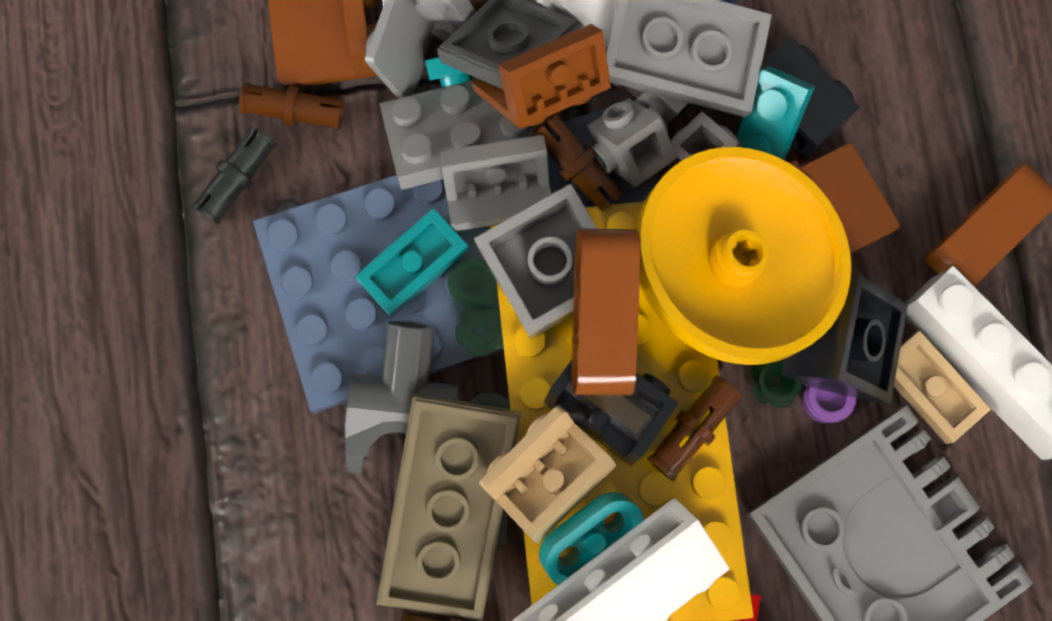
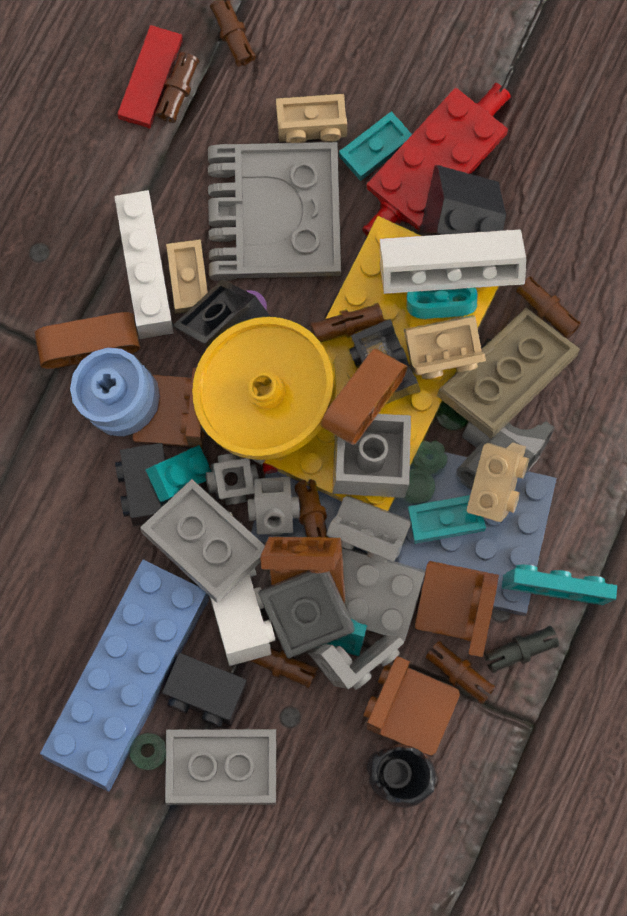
camera: 145 degrees left, 5 degrees down
(224, 267) = (559, 585): none -> teal plate
(334, 177) = (457, 603): none -> dark orange bracket
(372, 333) = (496, 480): none -> tan bracket
(917, 173) = (115, 391): none -> light blue wheel

